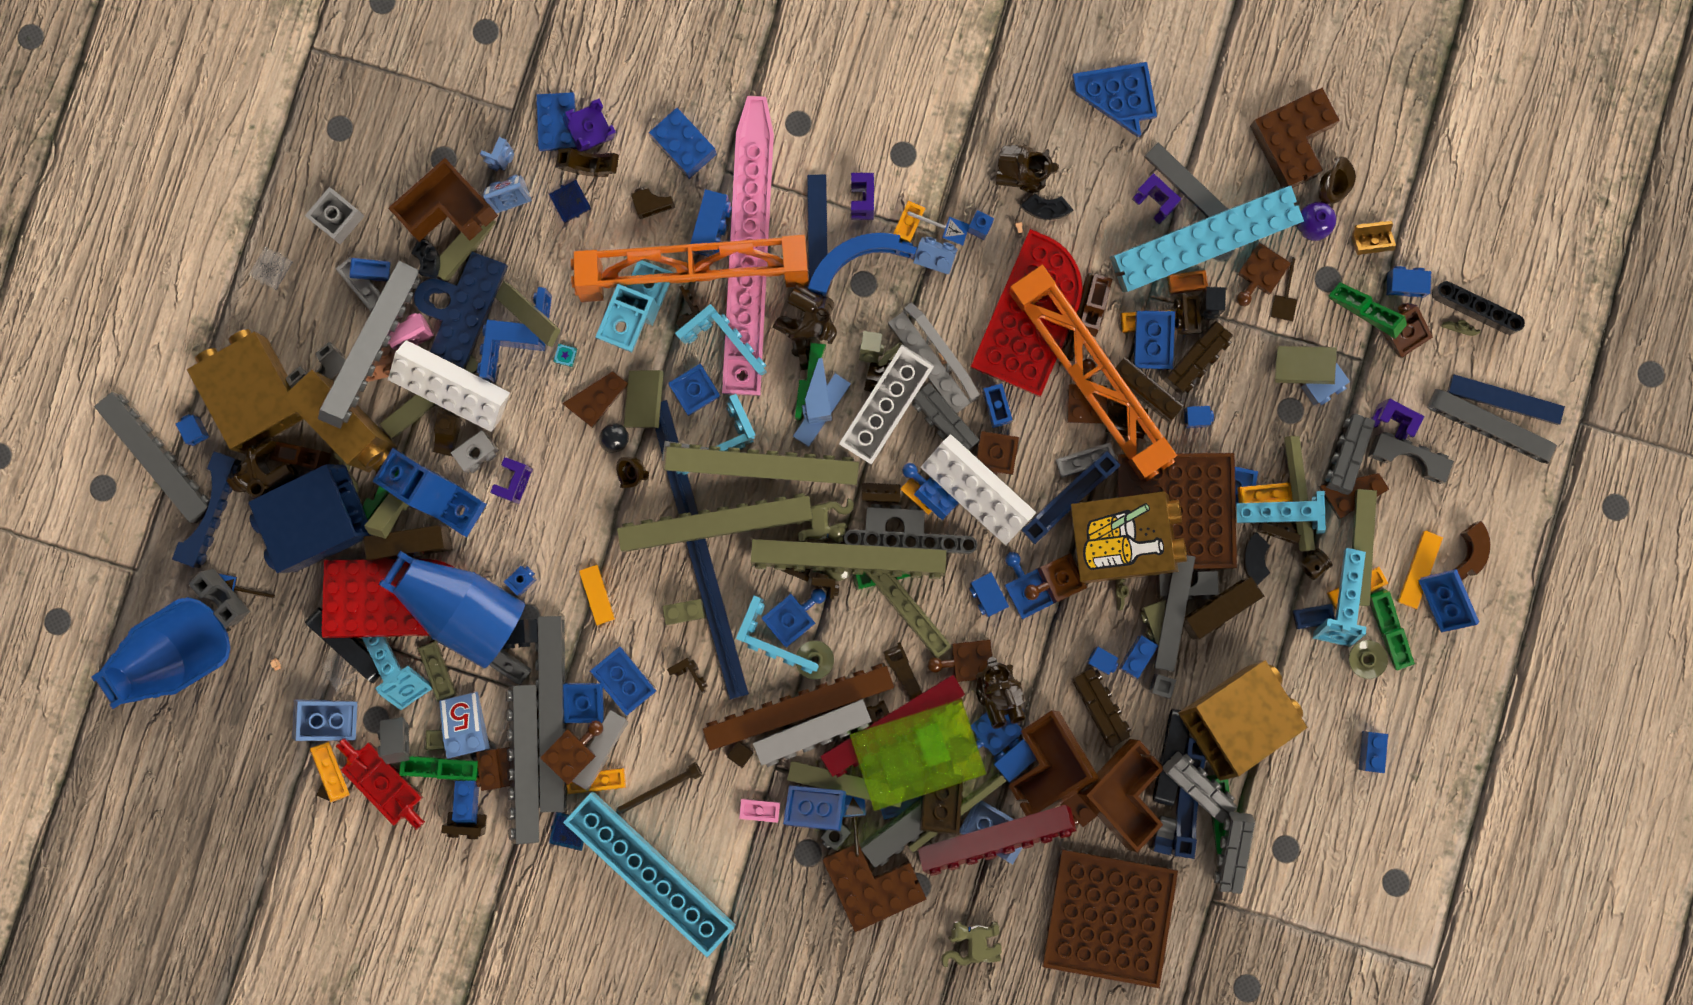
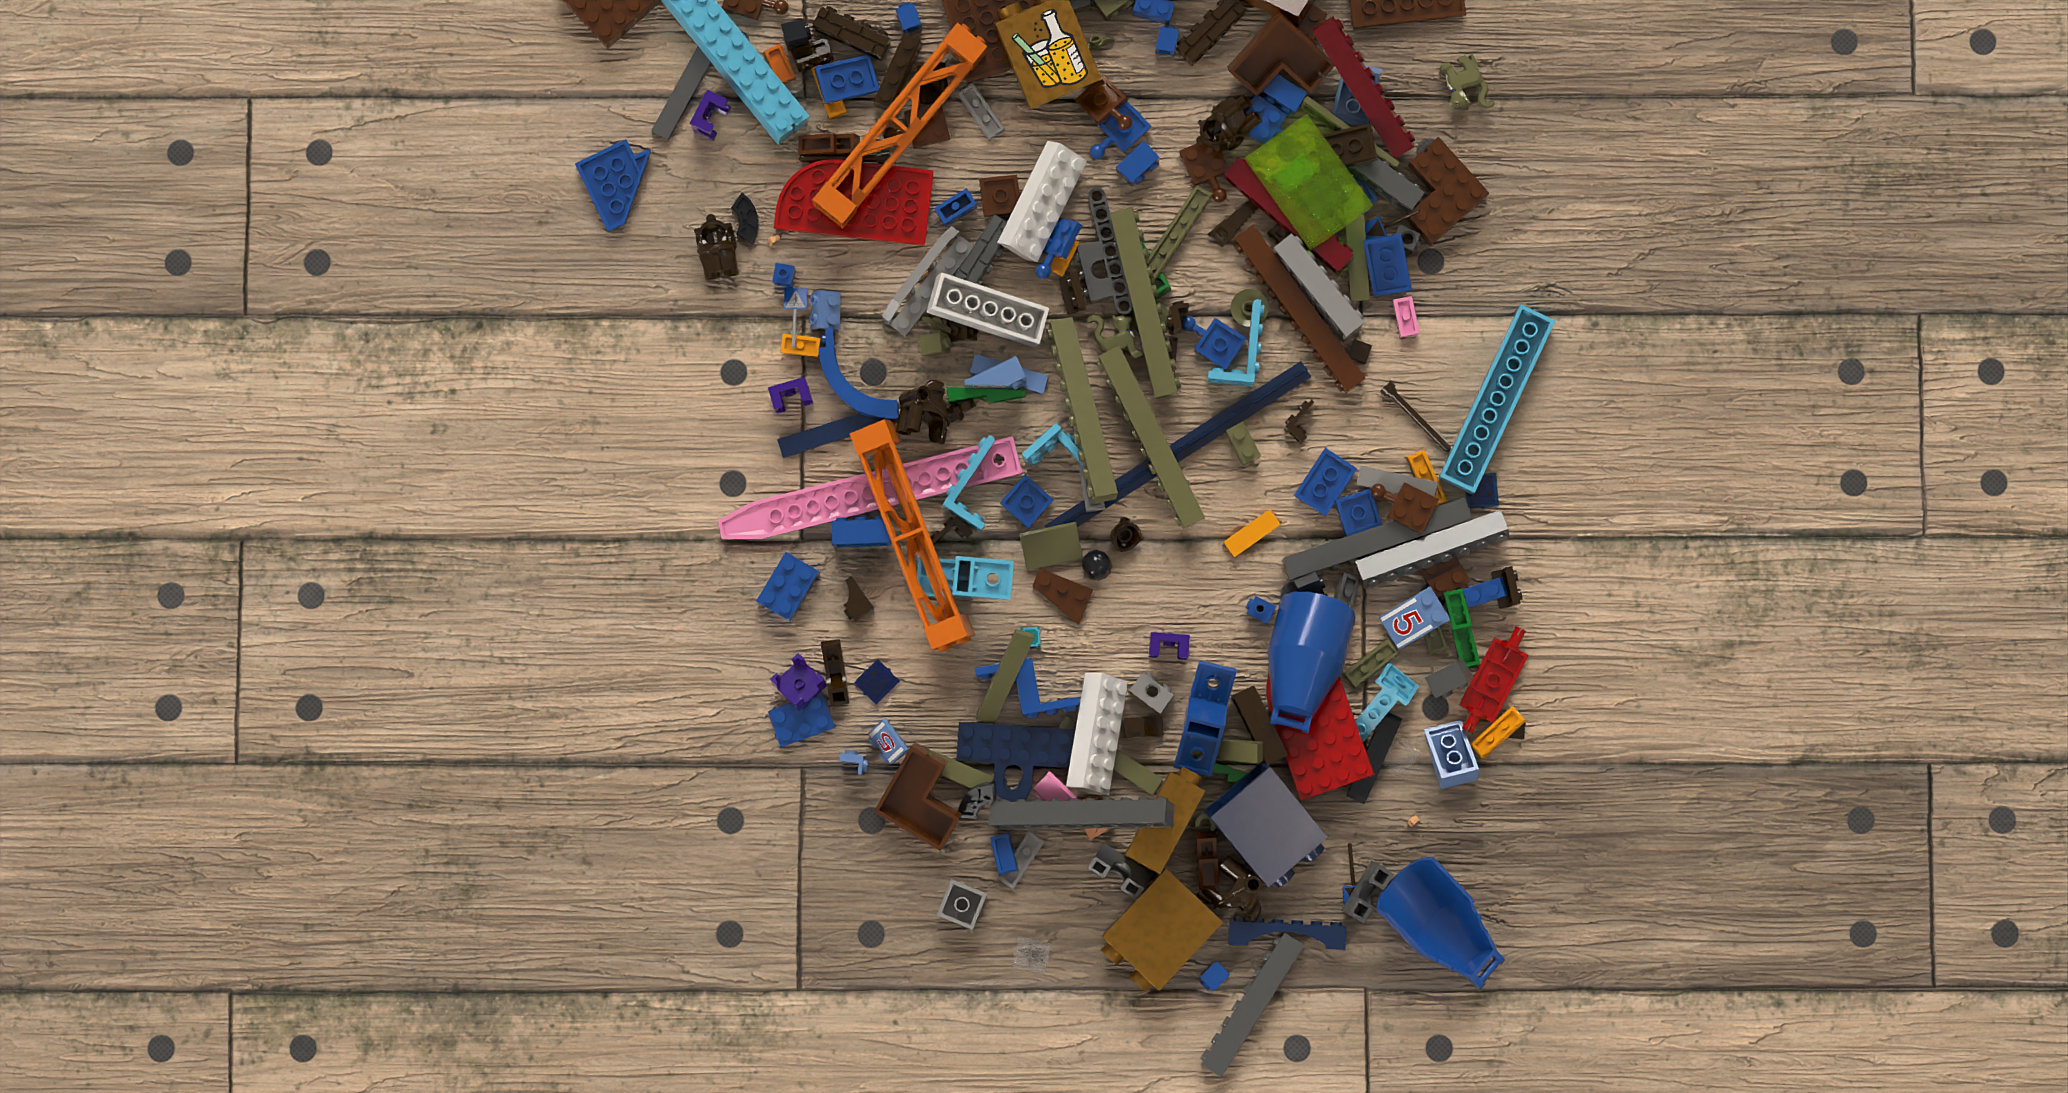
camera: 110 degrees left, 0 degrees up
(1072, 494) = (1004, 104): dark blue arch -> none

